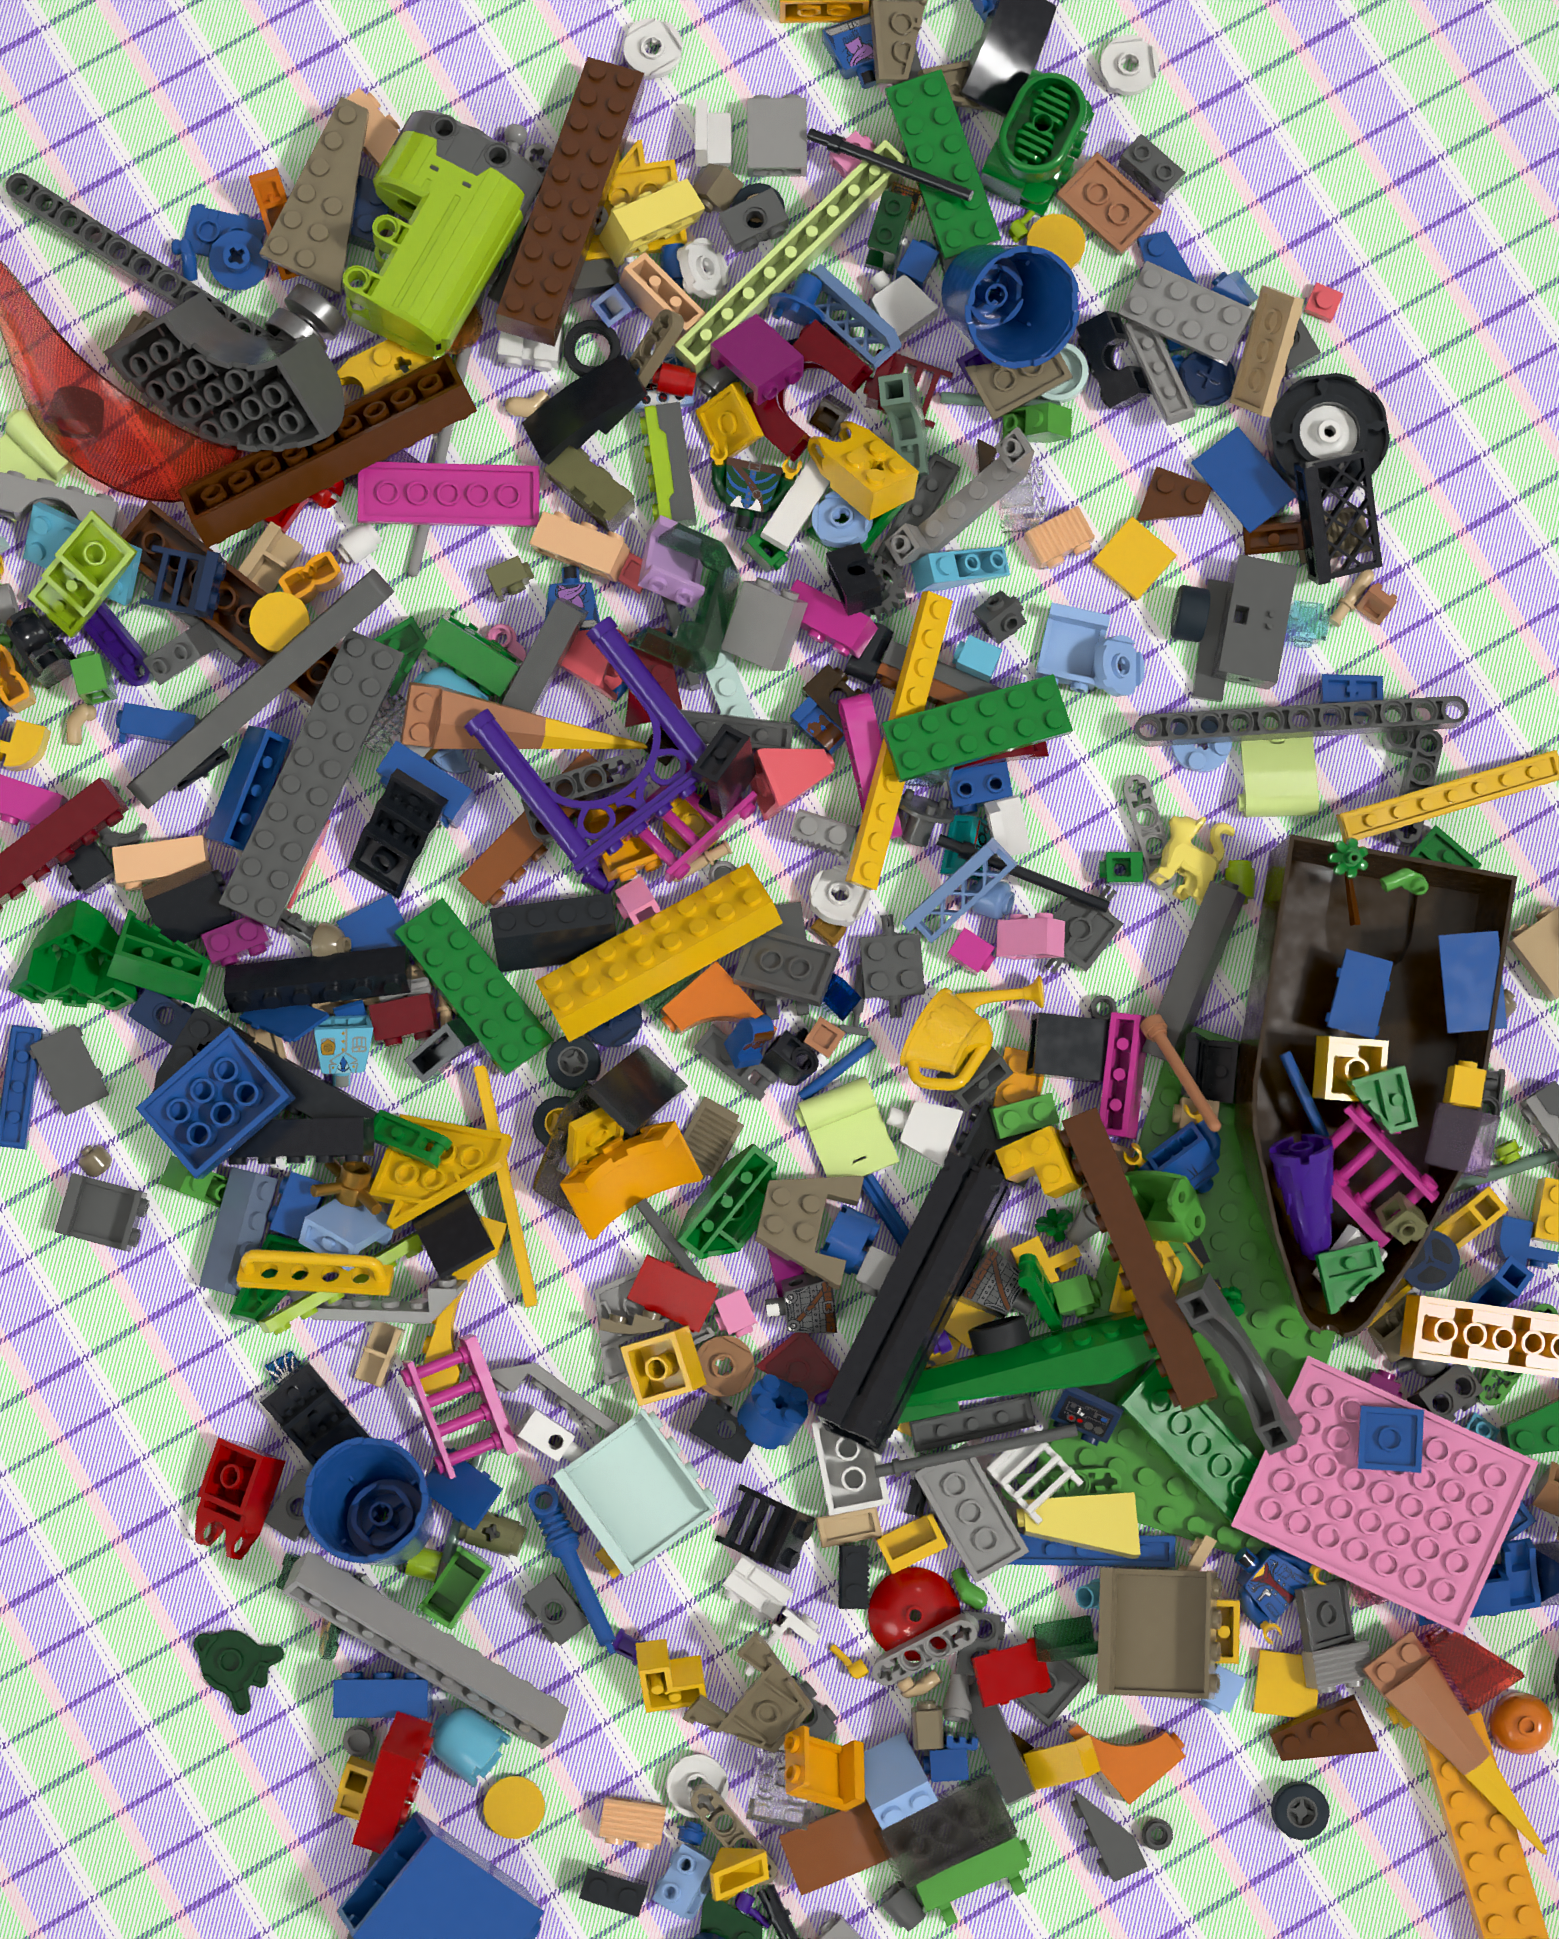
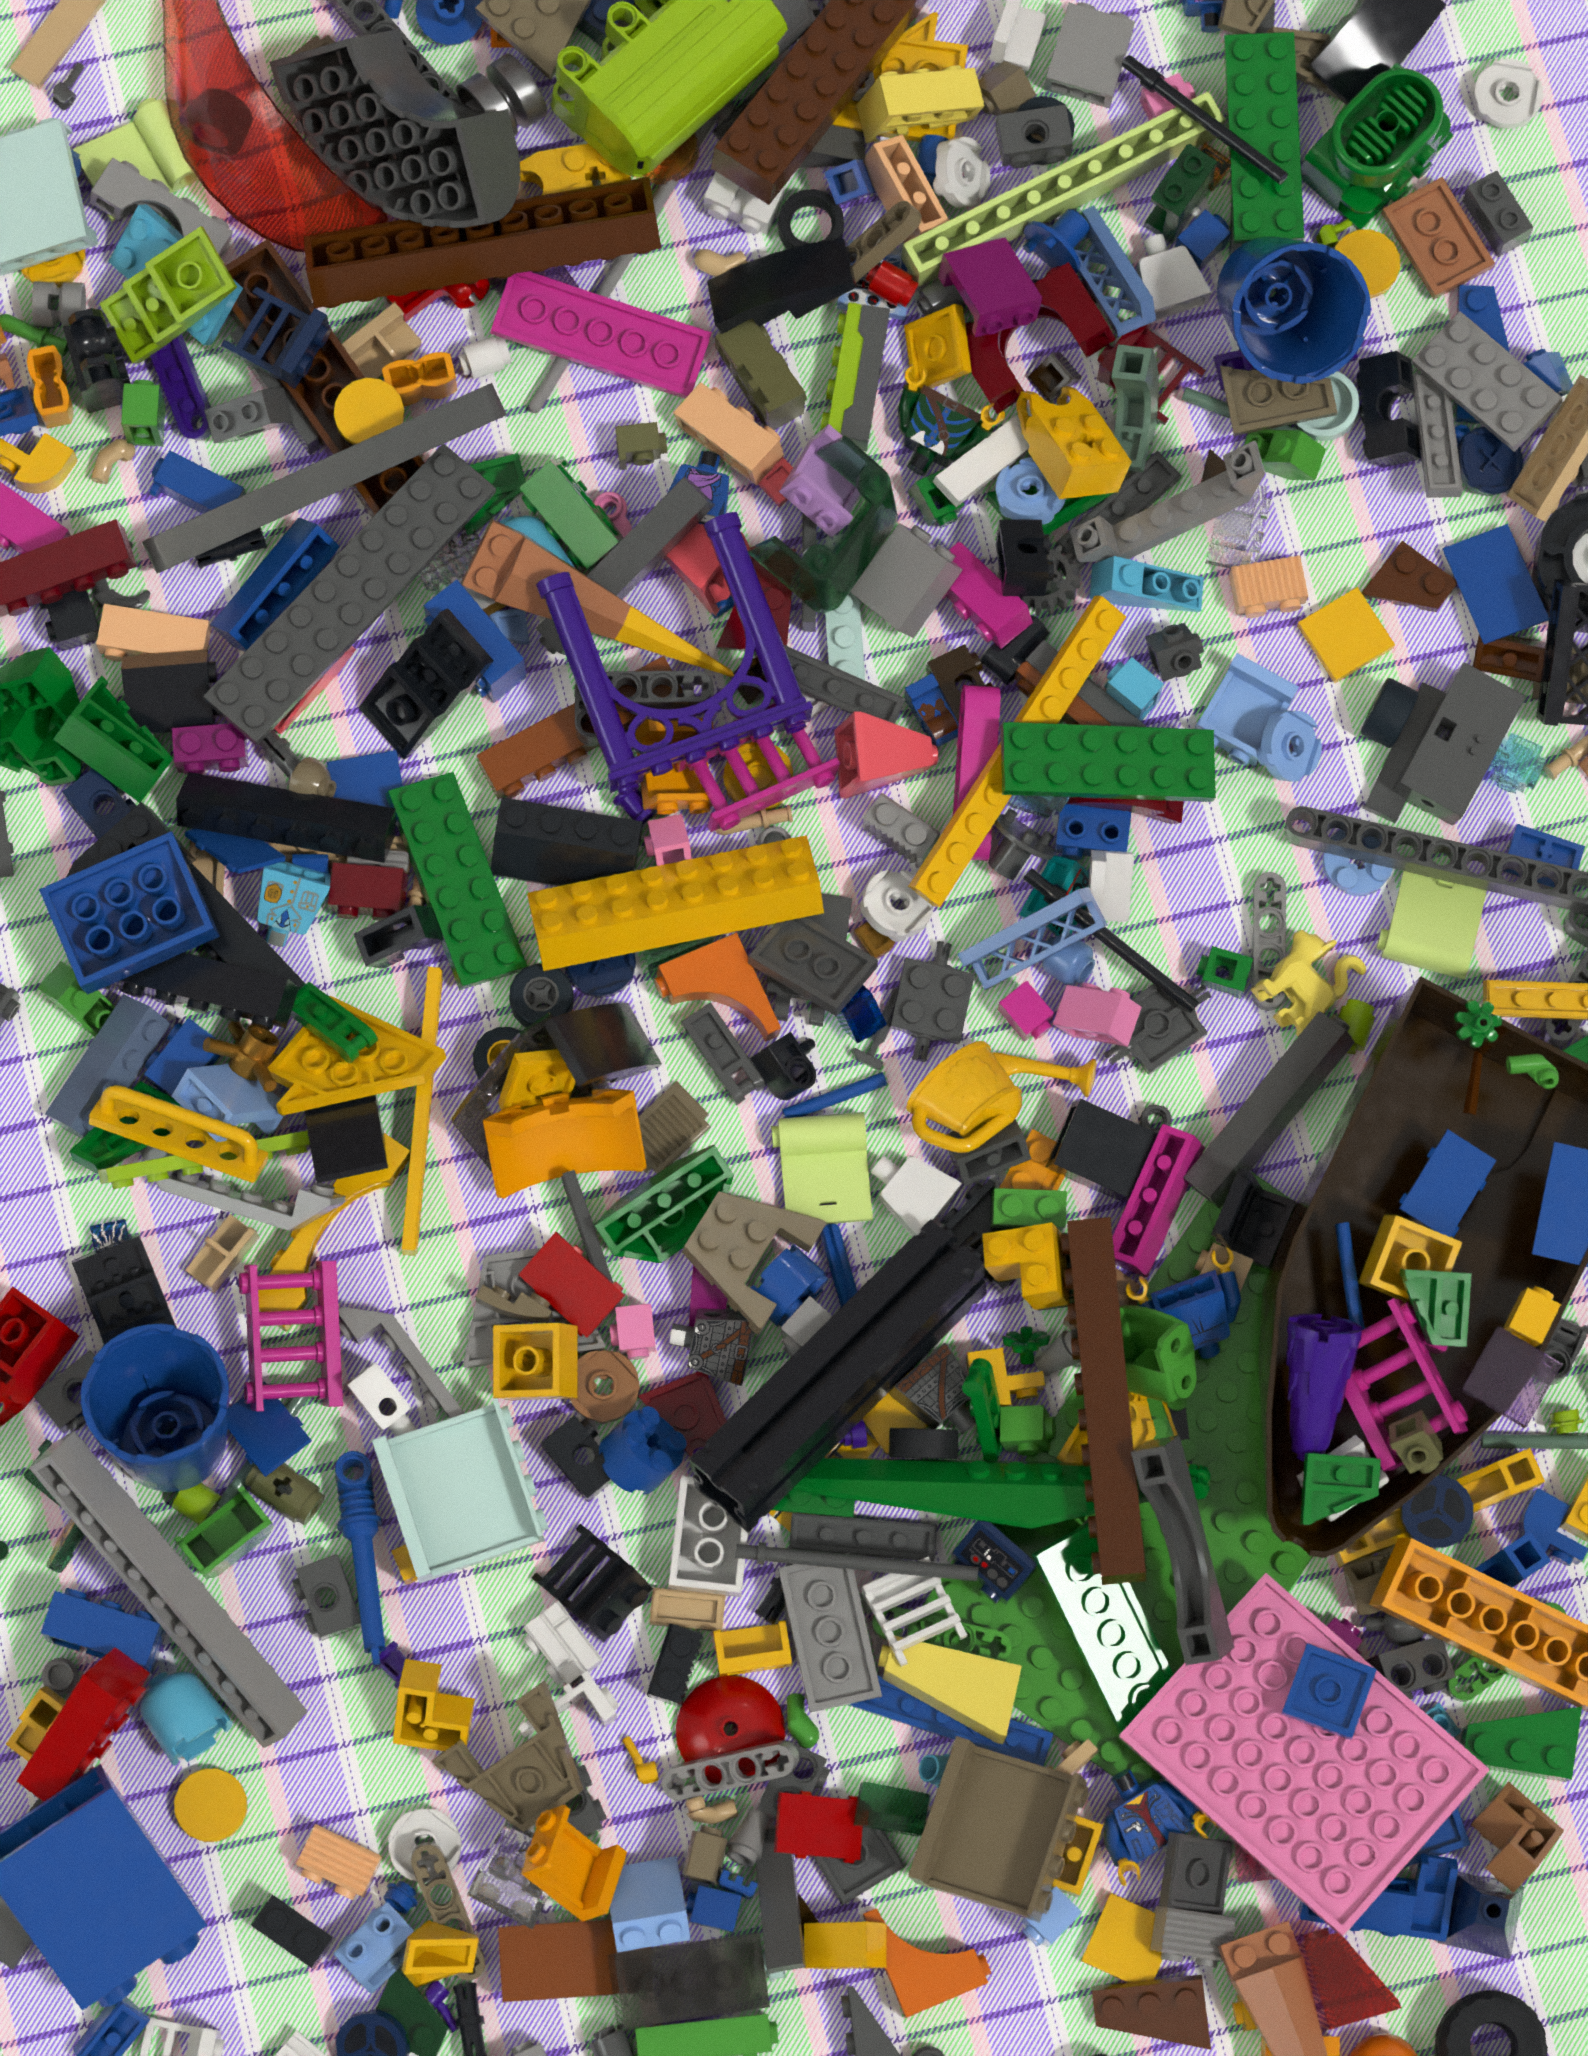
camera: 15 degrees right, 5 degrees down
(726, 768) = (813, 721): black panel -> none
(748, 1039) = (745, 1029): blue leg -> none
(824, 1037) = (831, 1055): nougat tile -> none
(1155, 1029) = (1205, 1157): nougat piece -> none

